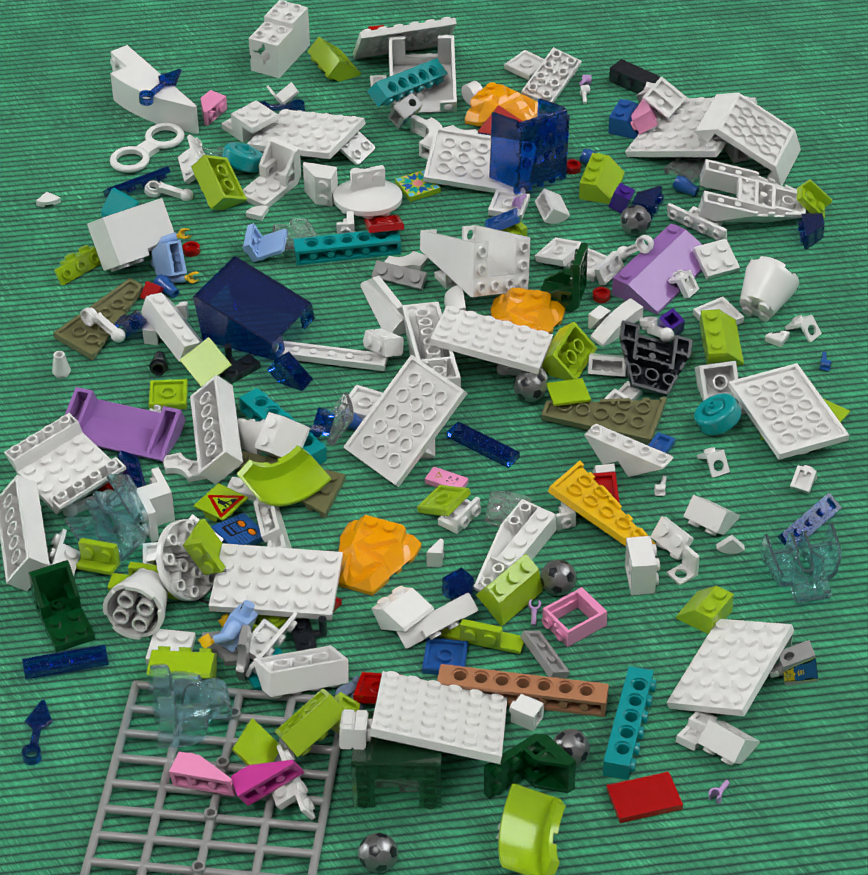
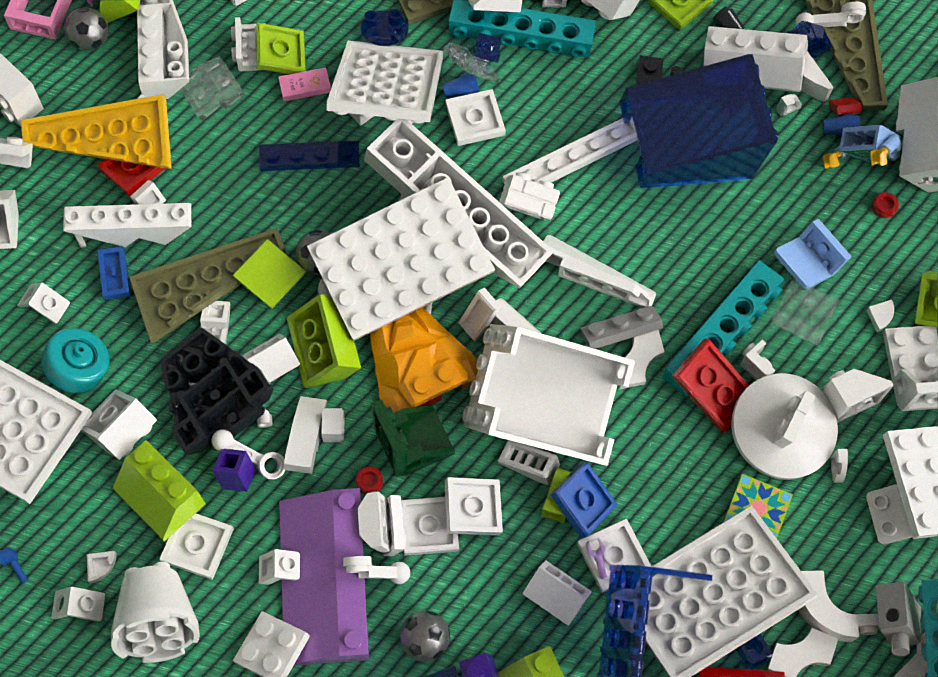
camera: 135 degrees right, 25 degrees up
(205, 362) = (679, 45): lime piece -> none
(290, 372) = (589, 99): clear blue slope -> none
(364, 478) = (384, 27): none -> clear blue dish
(468, 304) = (479, 314): none -> white tile
(617, 263) = (374, 521): none -> white slope

